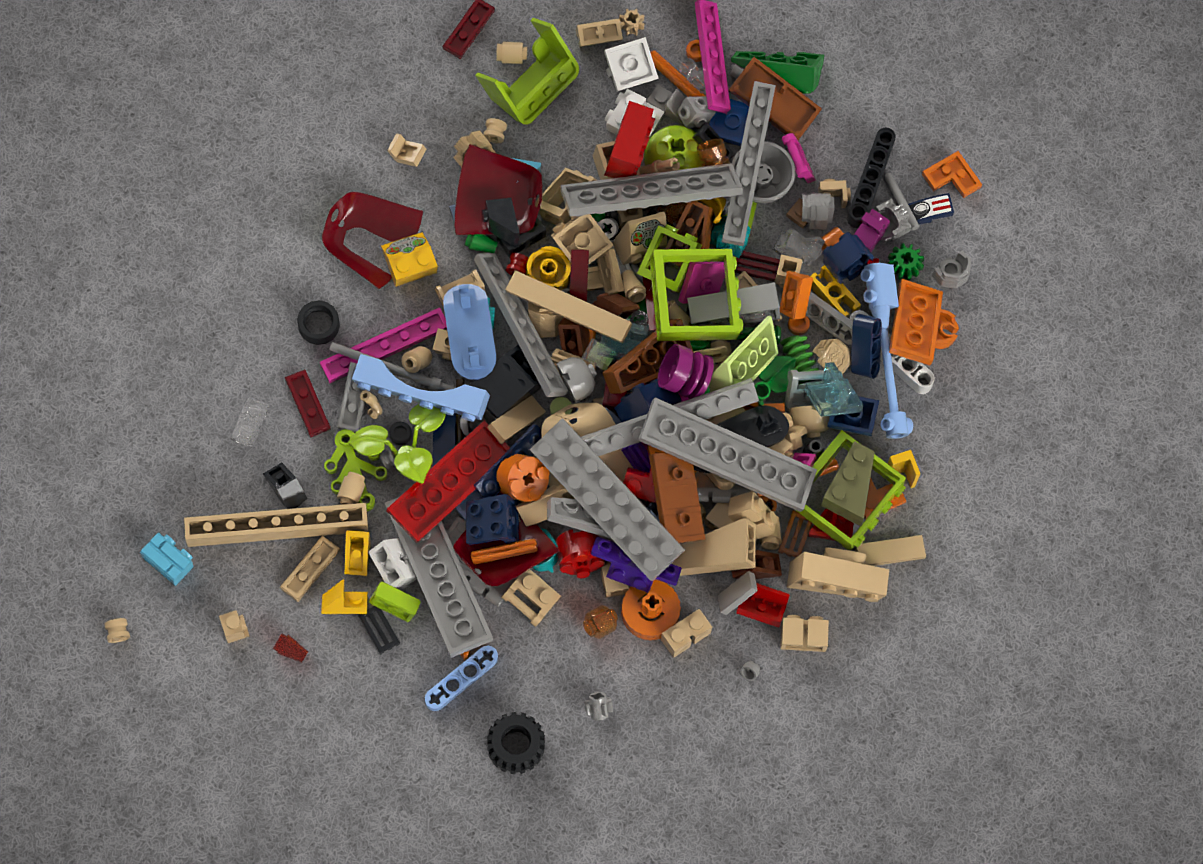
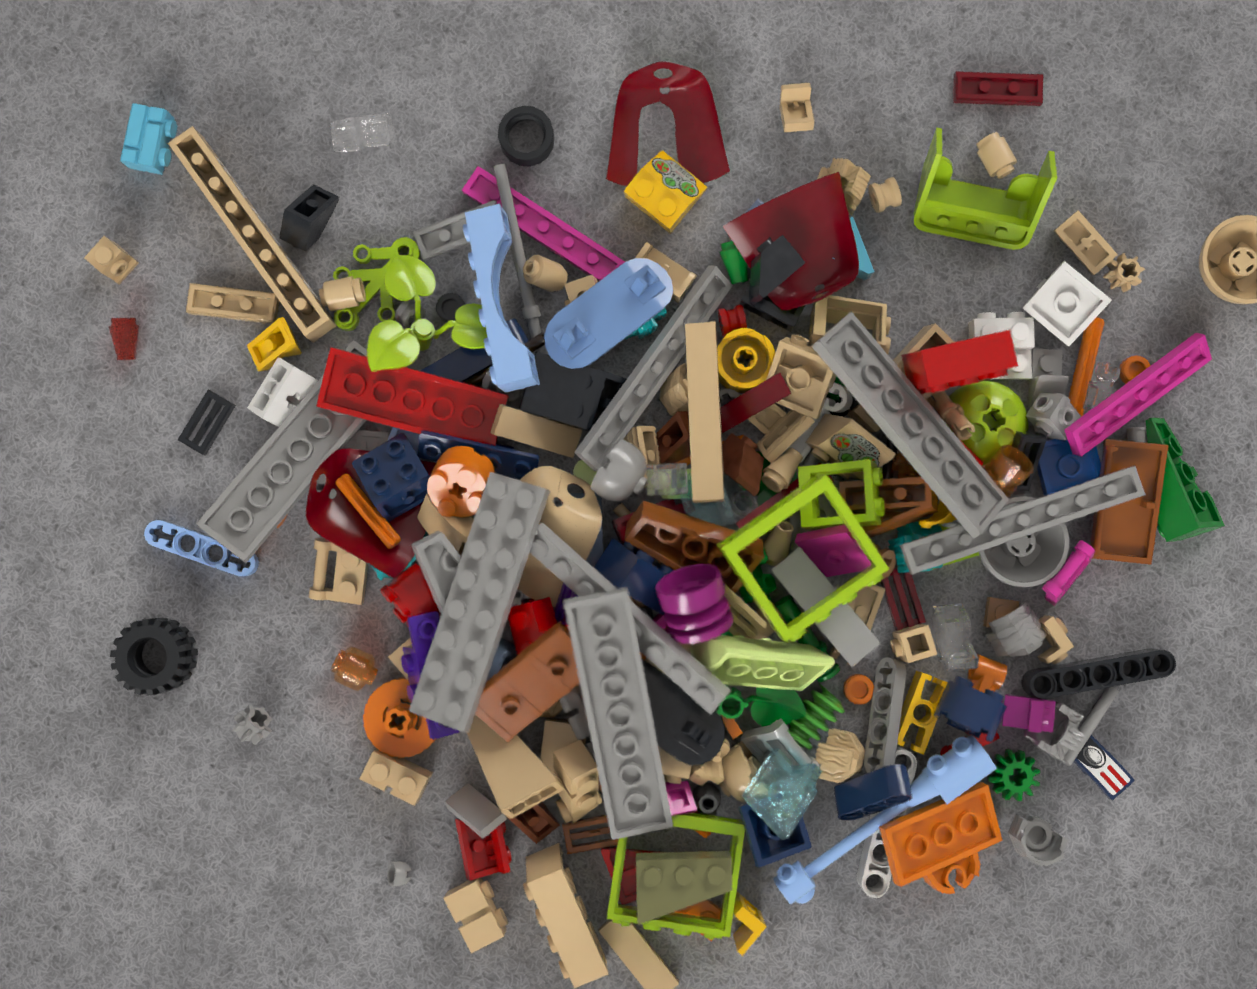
camera: 65 degrees right, 15 degrees up
(117, 630) = (35, 135): tan wheel -> none
(307, 403) = (425, 183): dark red tile -> none
(341, 602) = (211, 365): yellow slope -> none
(373, 402) = (461, 262): tan arm -> none
(395, 601) = (240, 422): lime slope -> none
(795, 295) = (887, 670): orange slope -> none
(845, 555) = (596, 909): tan beam -> none
(953, 169) = (1169, 766): orange plate -> none

